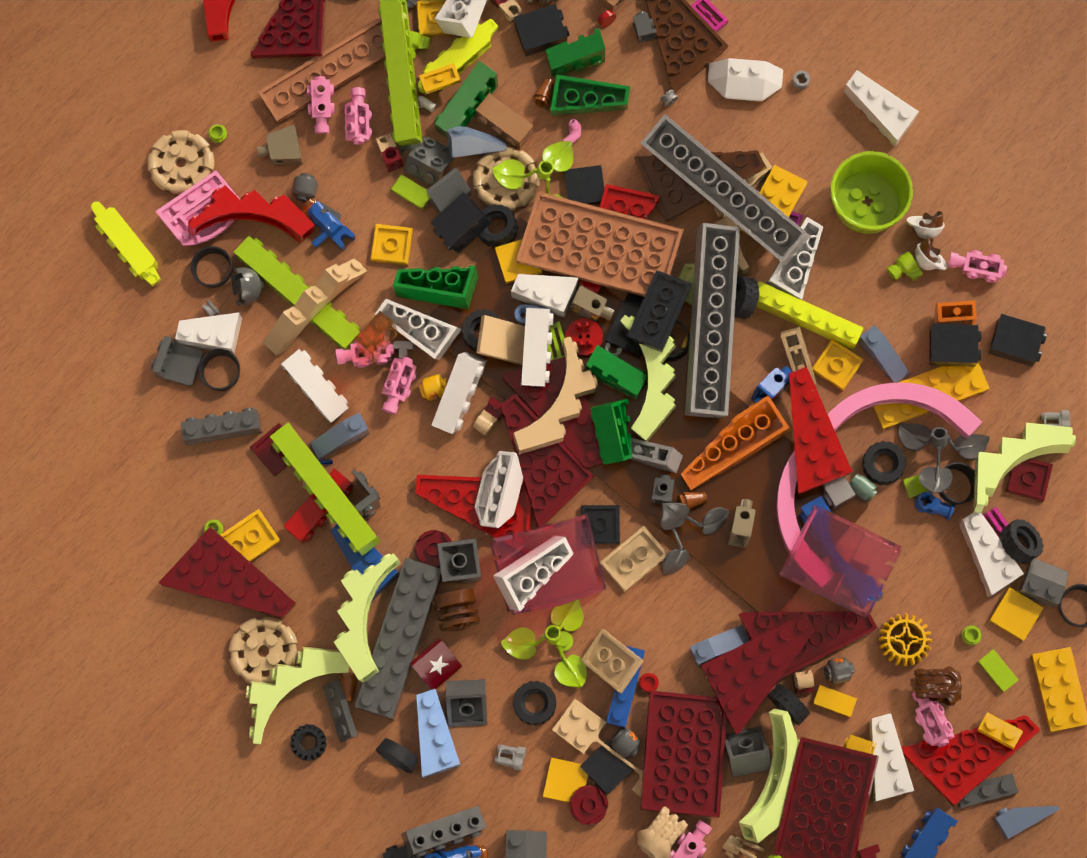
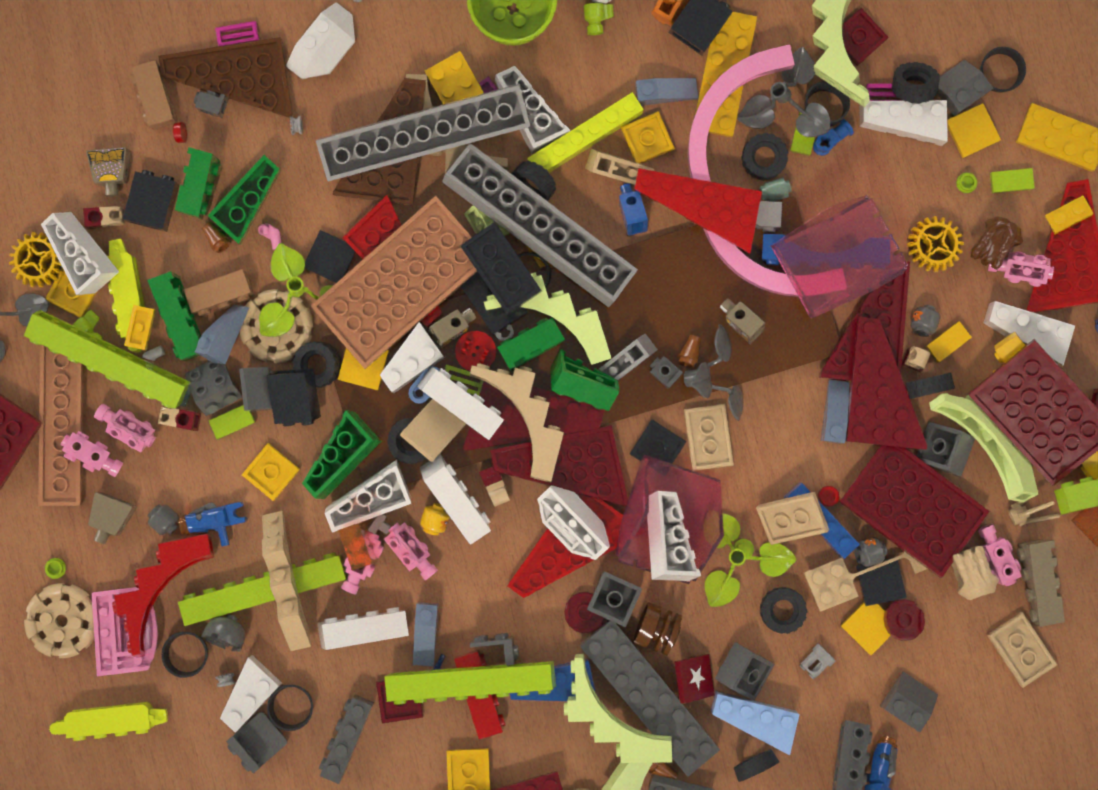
camera: 60 degrees left, 10 degrees up
(739, 440) = (664, 275): orange wedge -> none

